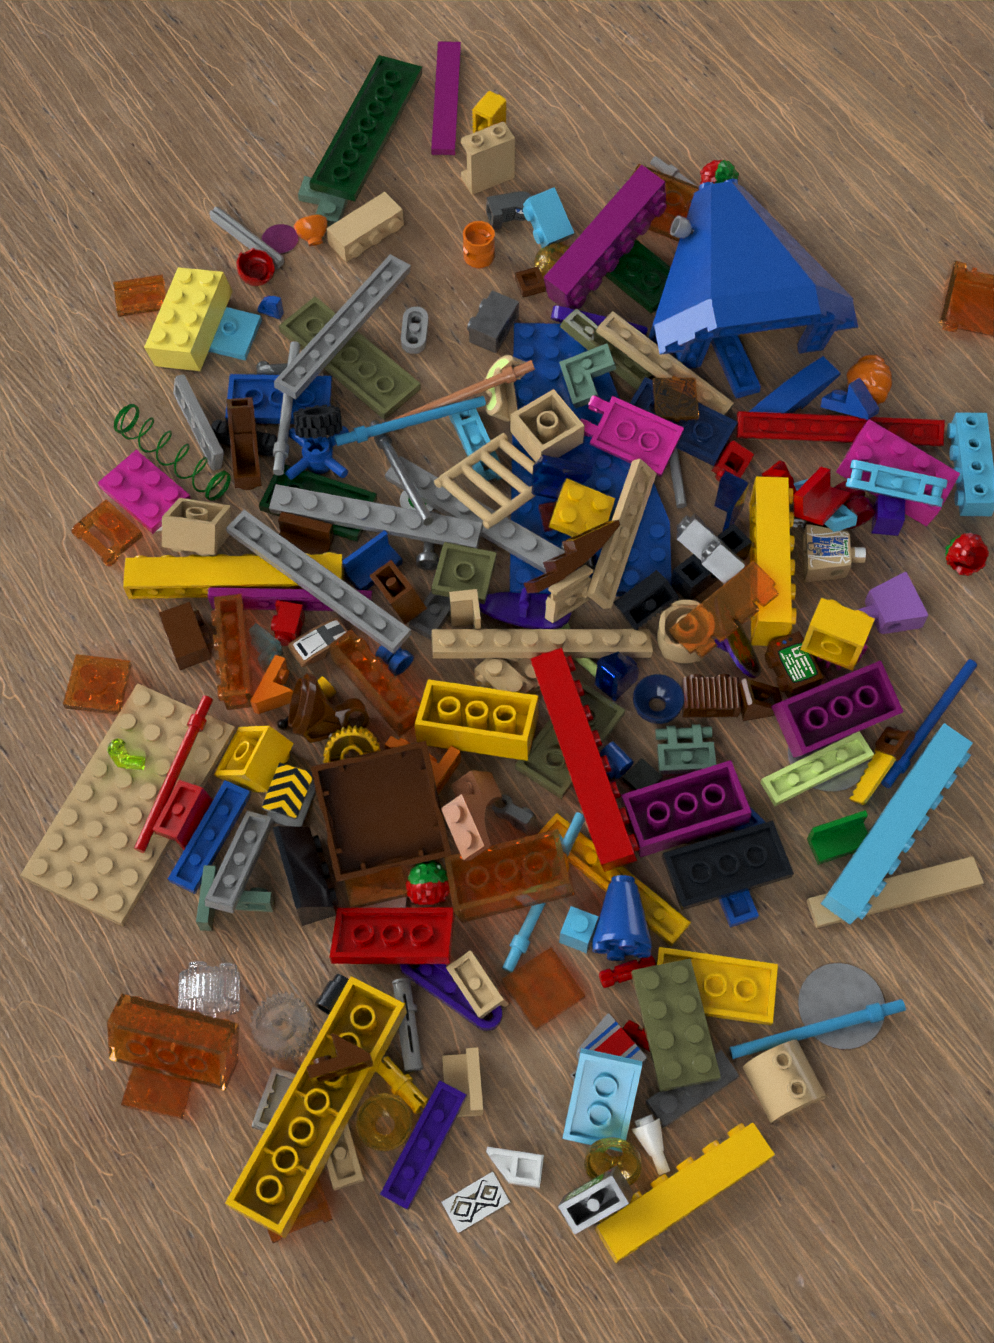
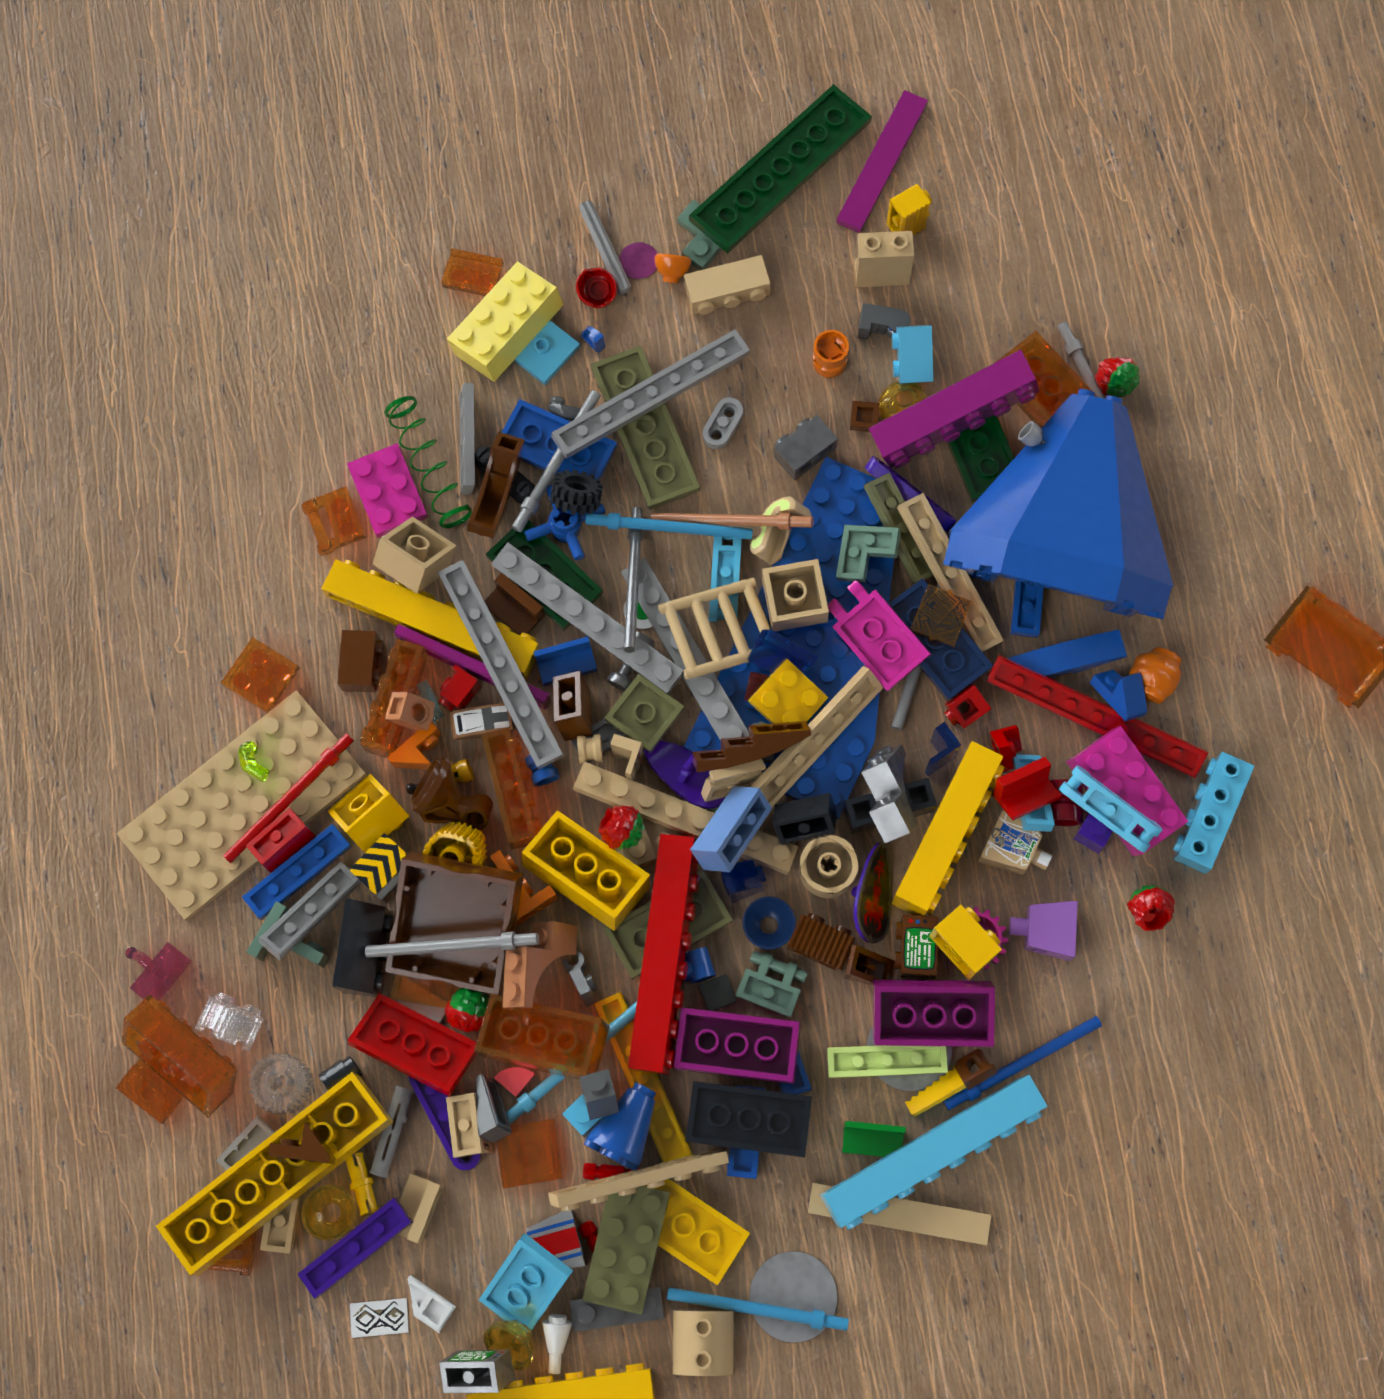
camera: 30 degrees right, 10 degrees up
(118, 979) = (159, 972): none -> clear pink plate
(255, 648) = (400, 711): none -> nougat brick
(431, 619) = (590, 748): none -> tan wheel
(441, 797) = (506, 941): none -> light grey bar
(494, 666) = (621, 827): none -> red piece
(497, 968) = (491, 1112): none -> dark grey slope
(498, 929) = (515, 1079): none -> coral tile
(588, 895) = (599, 1094): none -> dark grey brick
(590, 627) = (731, 829): none -> medium blue brick
(652, 962) = (626, 1183): none -> tan plate
(718, 611) = (872, 863): clear orange windscreen -> none

